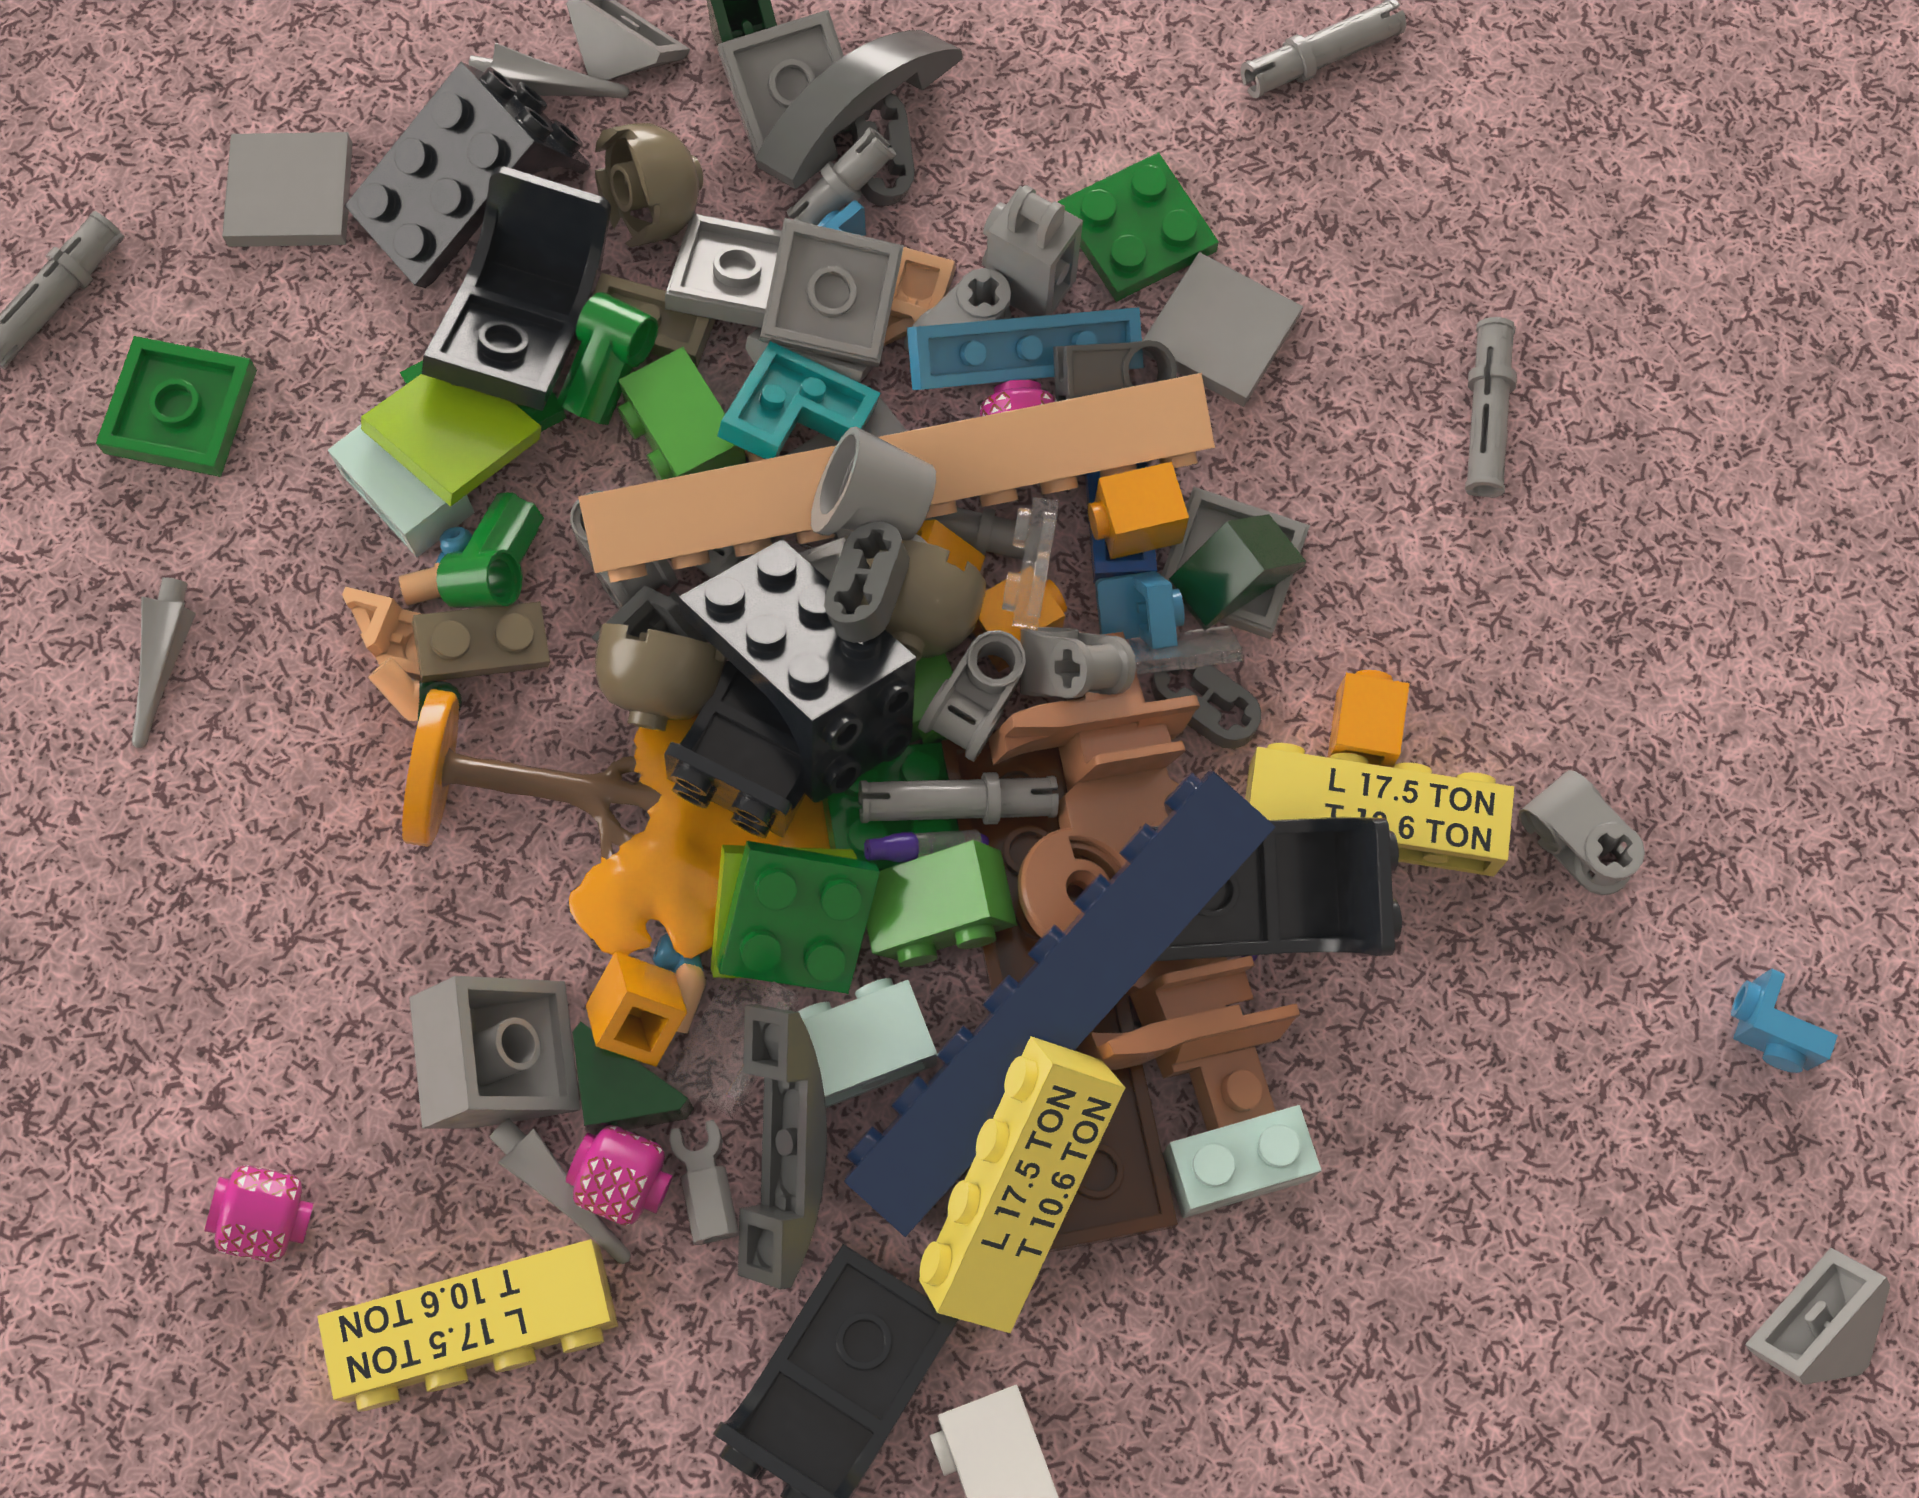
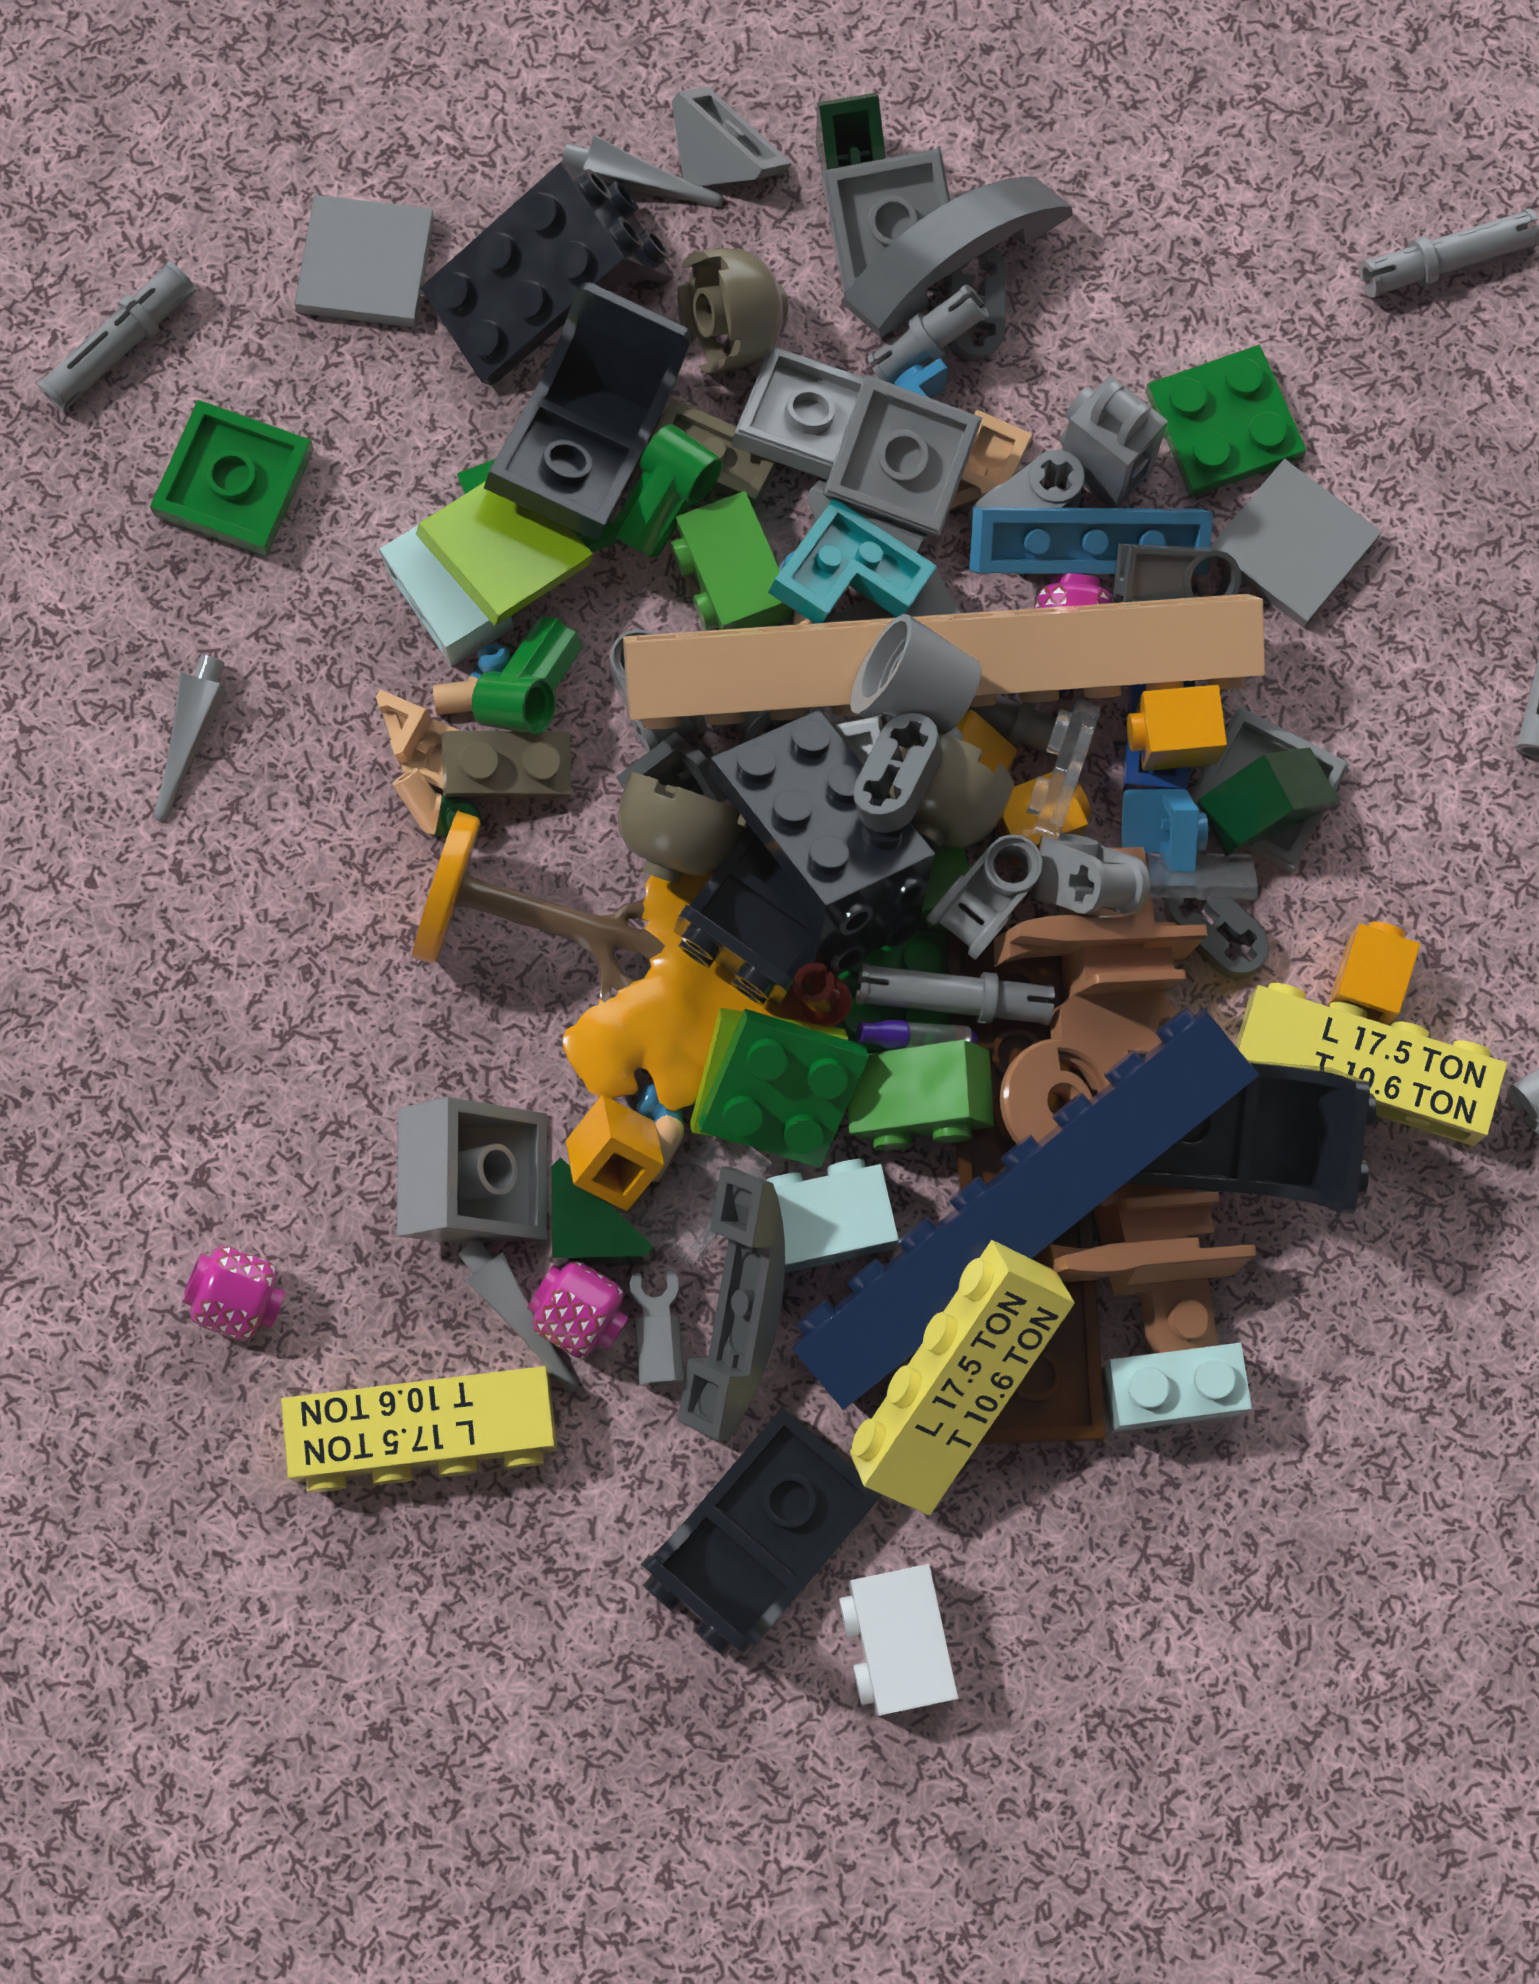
camera: 10 degrees right, 5 degrees up
(826, 820) = (823, 996): none -> clear red pin

